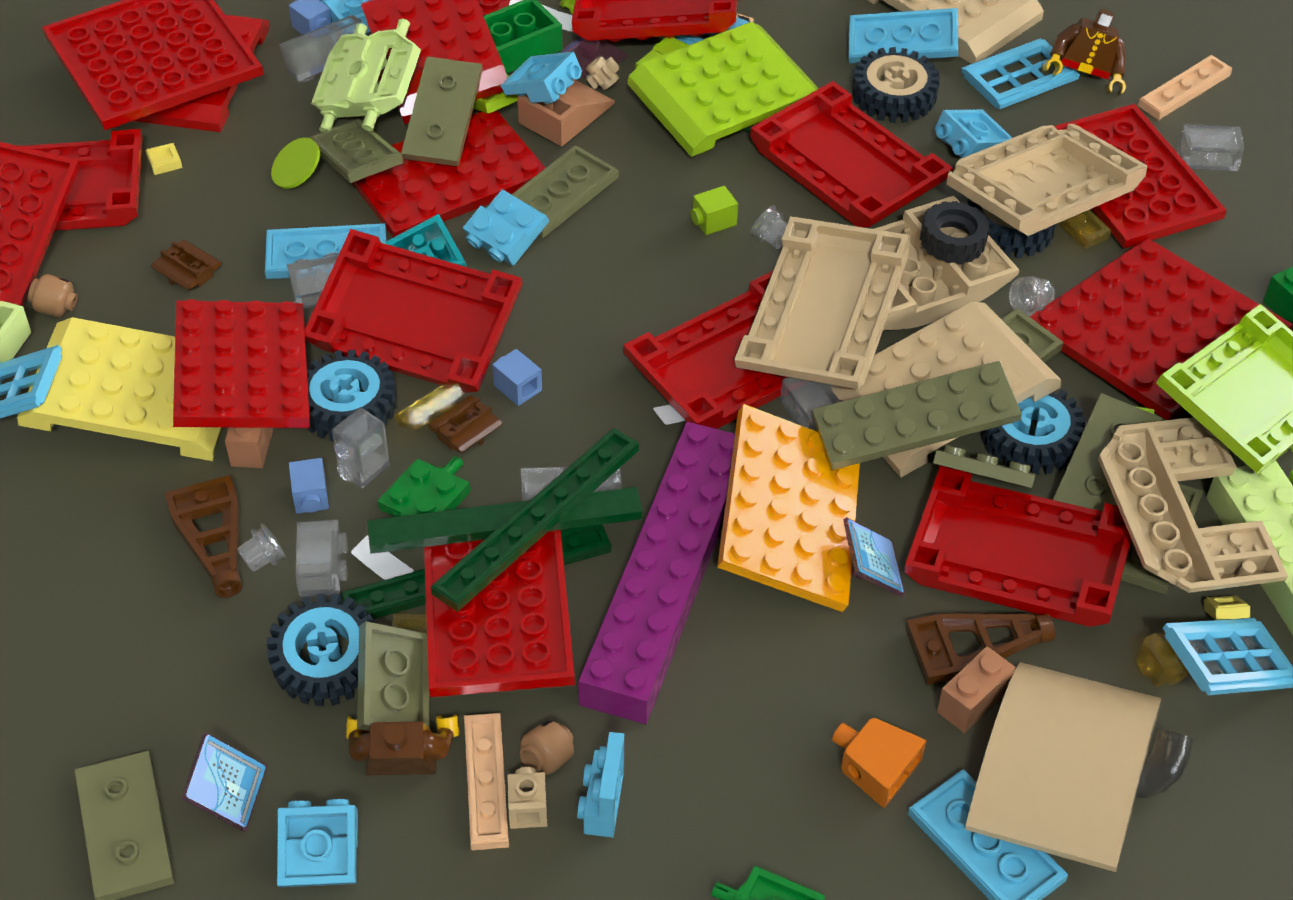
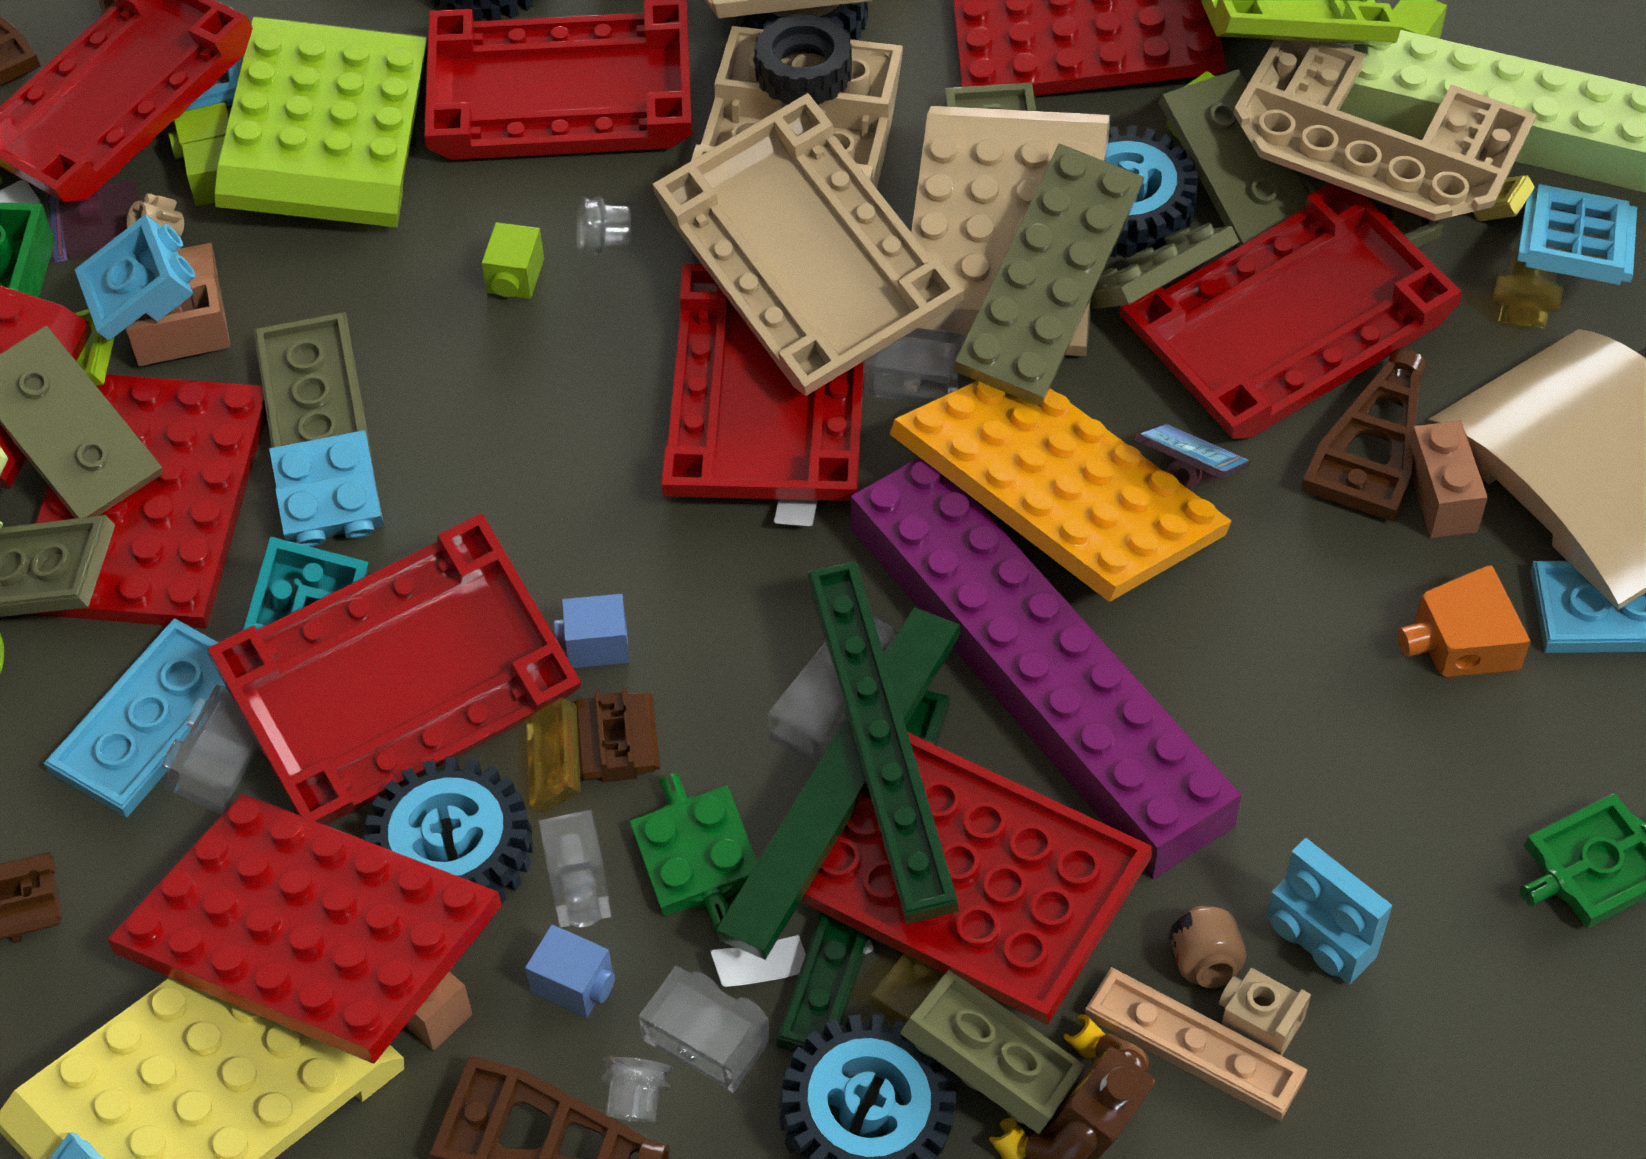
camera: 50 degrees left, 5 degrees up
(1031, 294) = (933, 75): clear piece -> none

